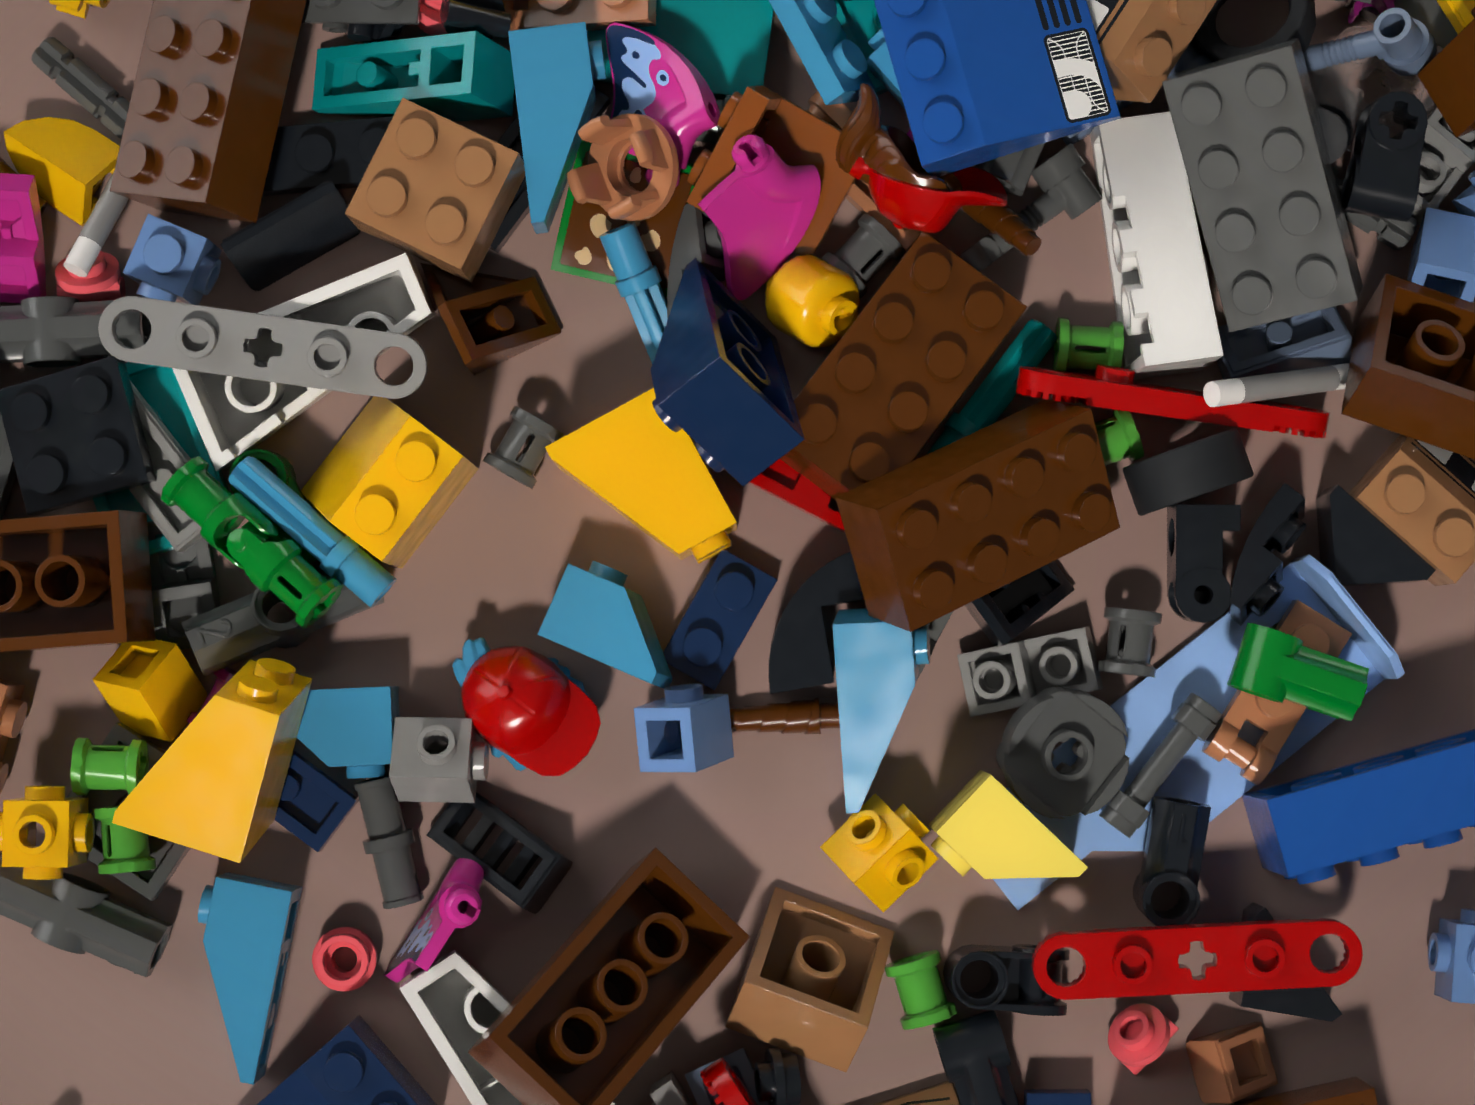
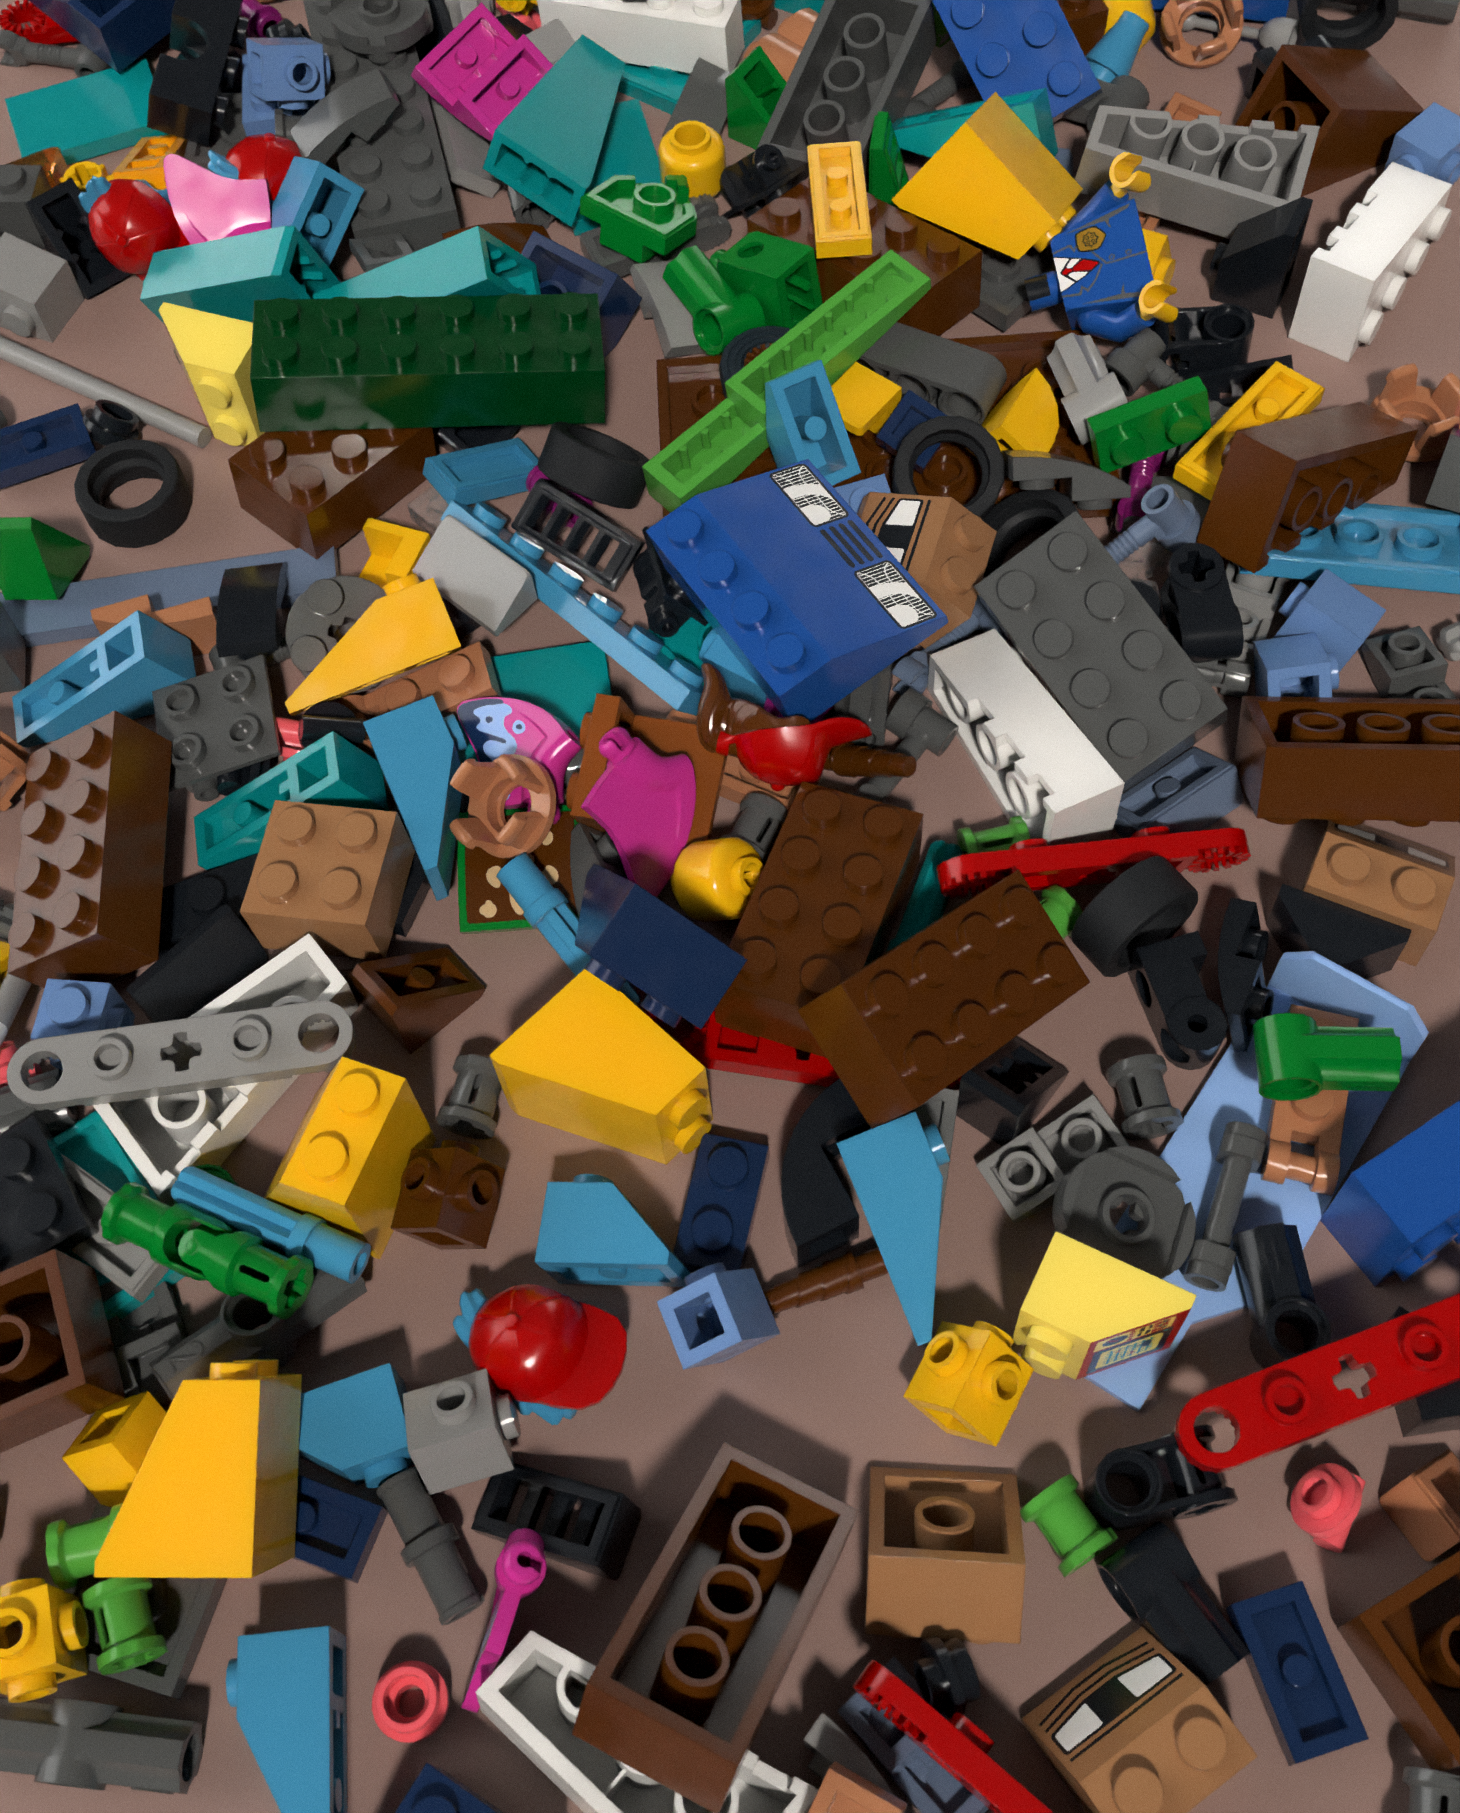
camera: 10 degrees left, 25 degrees down
(476, 543) = (448, 1196): none -> reddish brown brick
(1275, 385) = (1185, 816): light grey bar -> none

